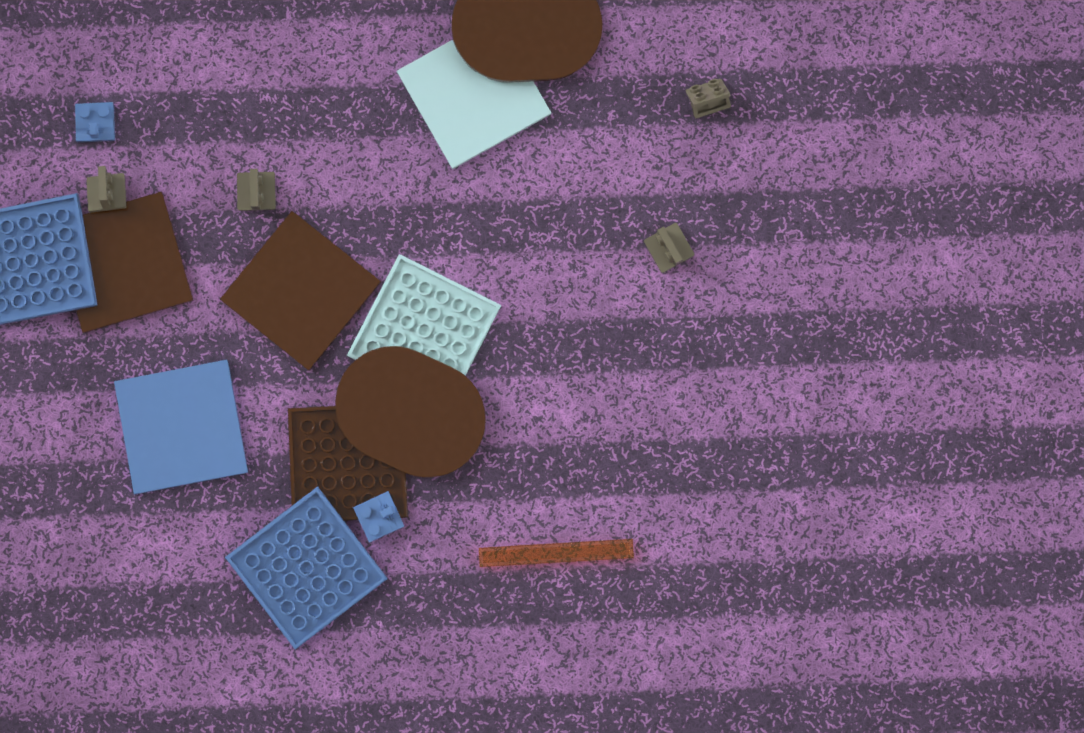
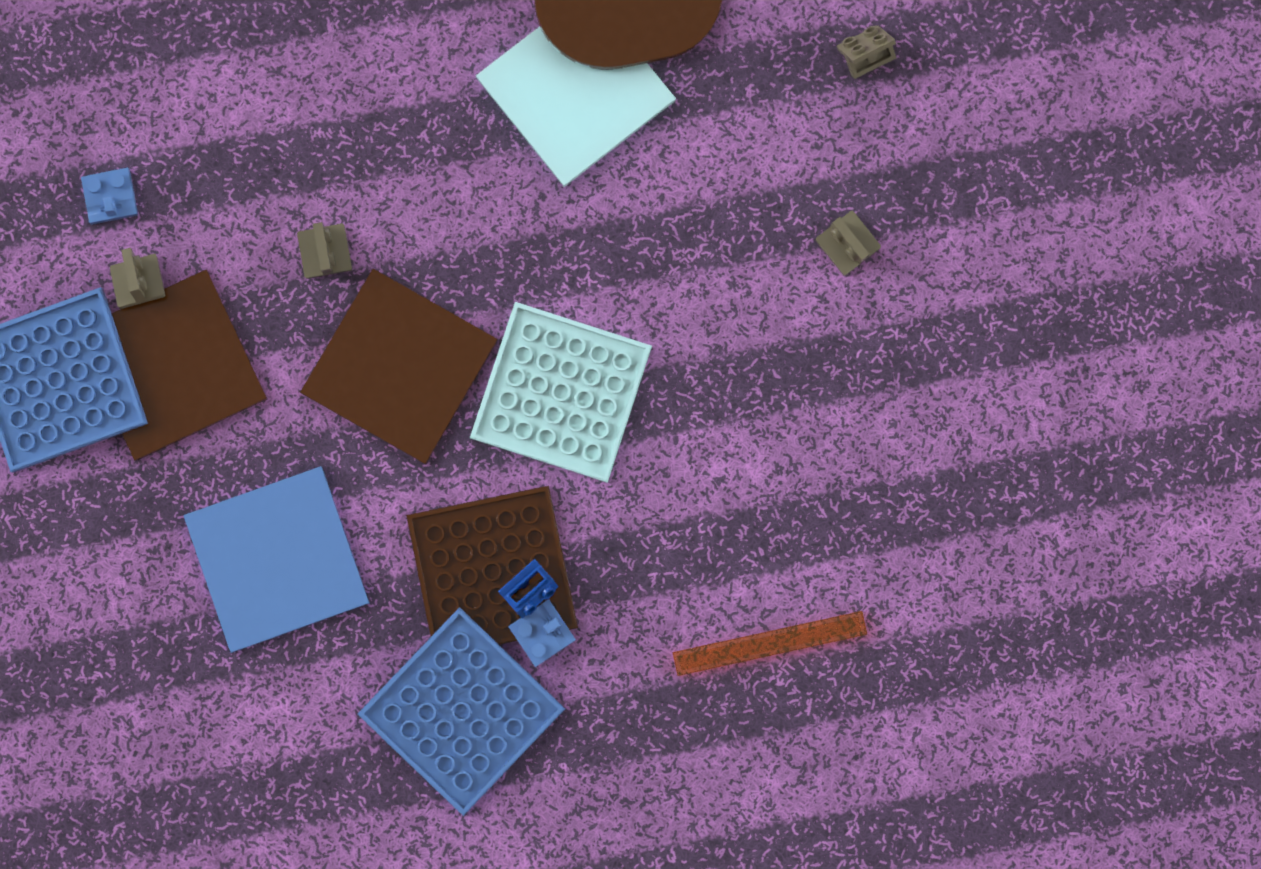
camera: 15 degrees left, 0 degrees up
(383, 484) = (529, 602): none -> blue window
(410, 411) = (560, 495): reddish brown tile -> none

